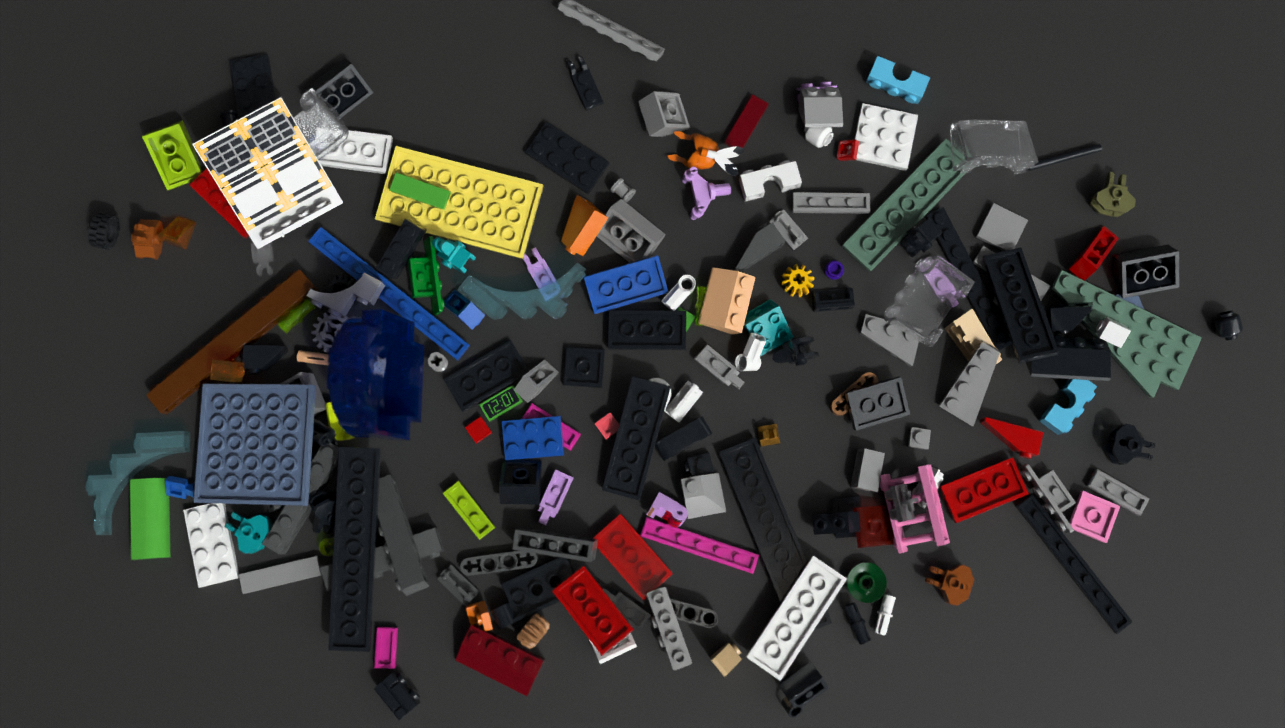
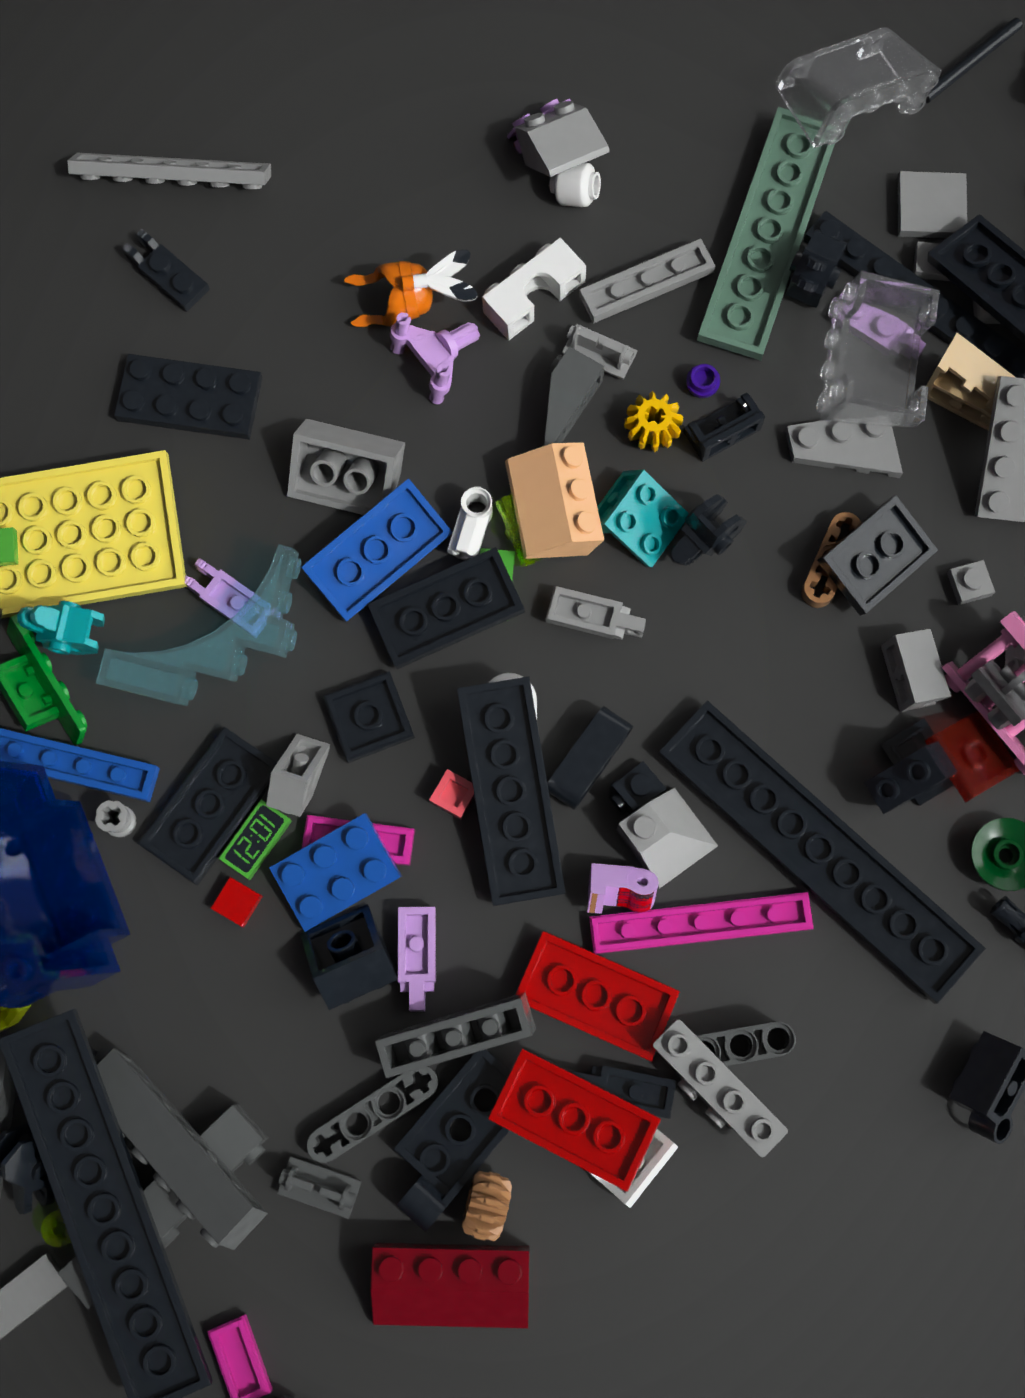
camera: 20 degrees left, 5 degrees down
(463, 309) = (123, 711): blue slope -> none
(469, 510) = (280, 1047): lime plate -> none
(479, 614) = (379, 1220): orange bracket -> none
(582, 226) = (262, 488): orange slope -> none
(623, 190) = (303, 405): light grey bush -> none
(663, 113) = (313, 260): light grey slope -> none
(683, 401) = (560, 696): white hinge -> none
(726, 658) = (840, 1094): tan slope -> none
(746, 122) = (454, 214): dark red tile -> none
(750, 358) = (637, 576): white piece -> none
(768, 435) = (726, 688): pearl gold tile -> none
(796, 618) = (924, 969): white plate -> none
(847, 150) = (634, 190): red tile -> none
(882, 78) = (636, 61): medium azure arch -> none
(885, 136) = (680, 148): white plate -> none

